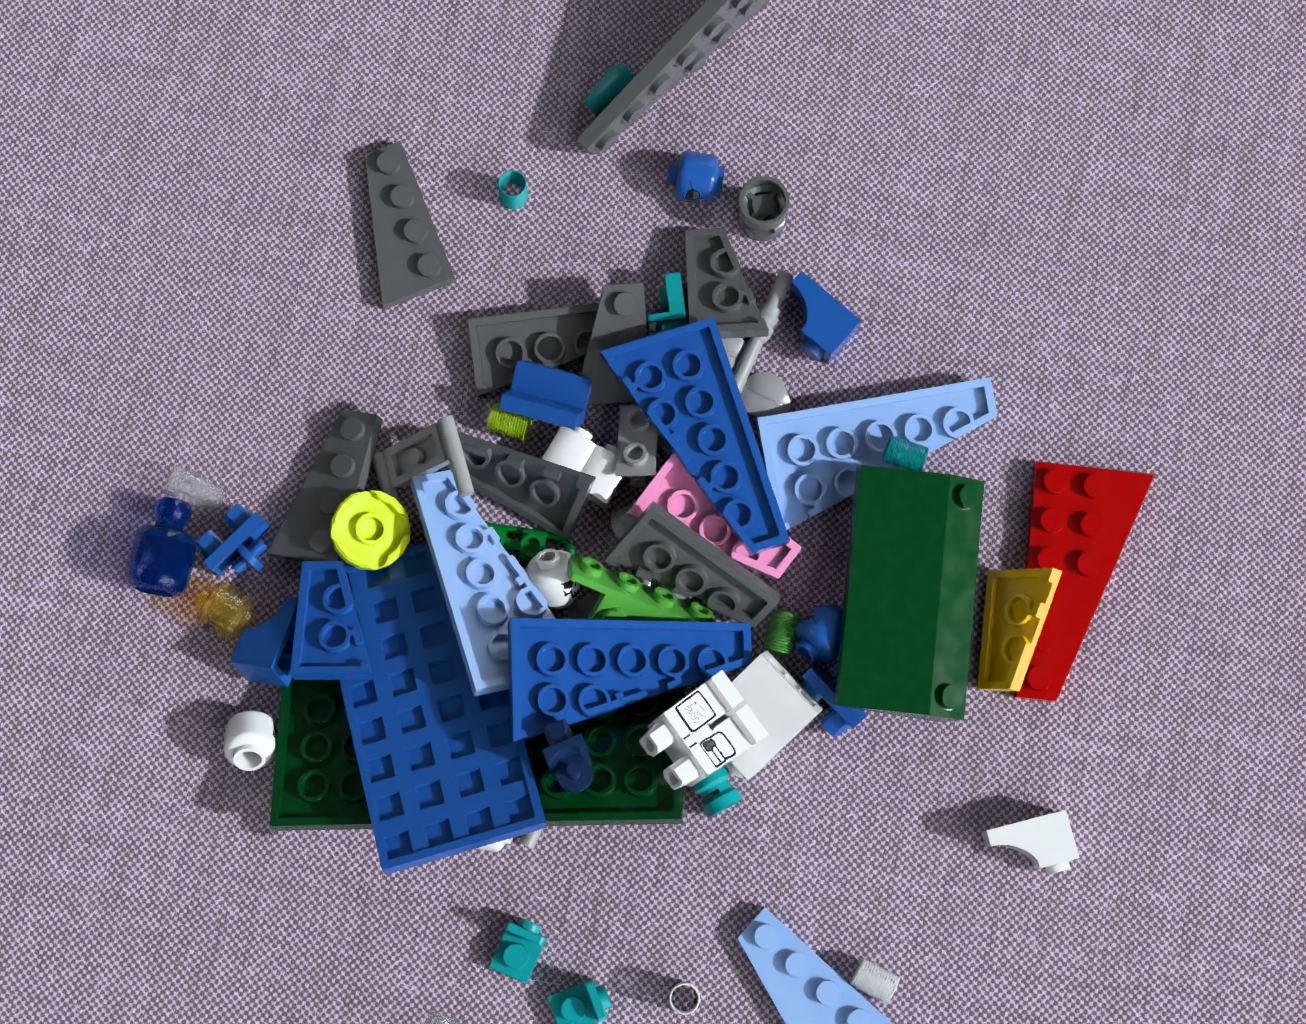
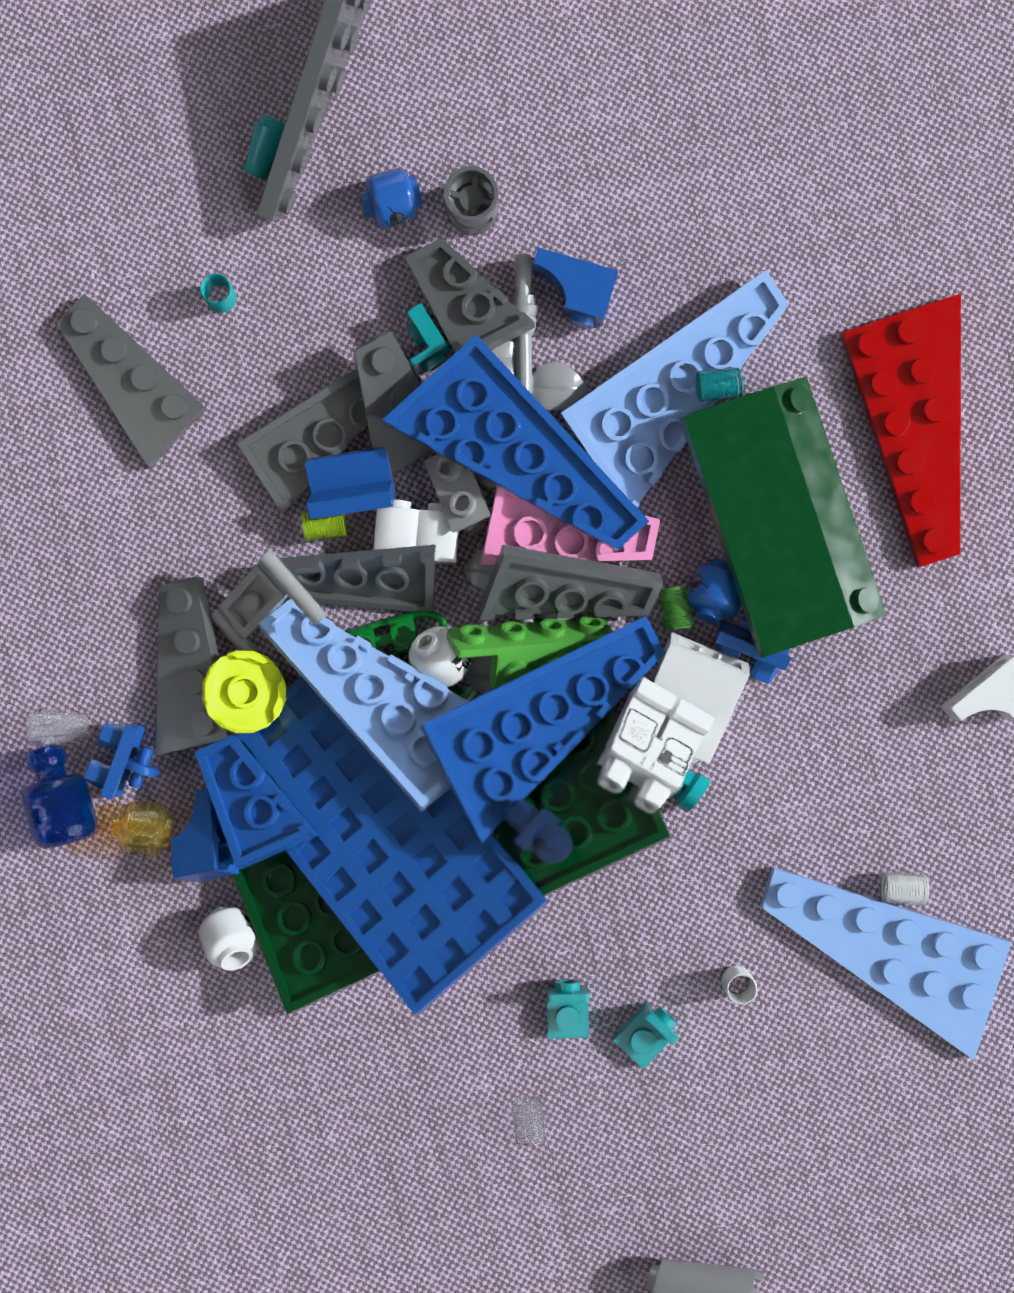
camera: 30 degrees left, 10 degrees up
(1012, 624) = (890, 500): yellow wing -> none

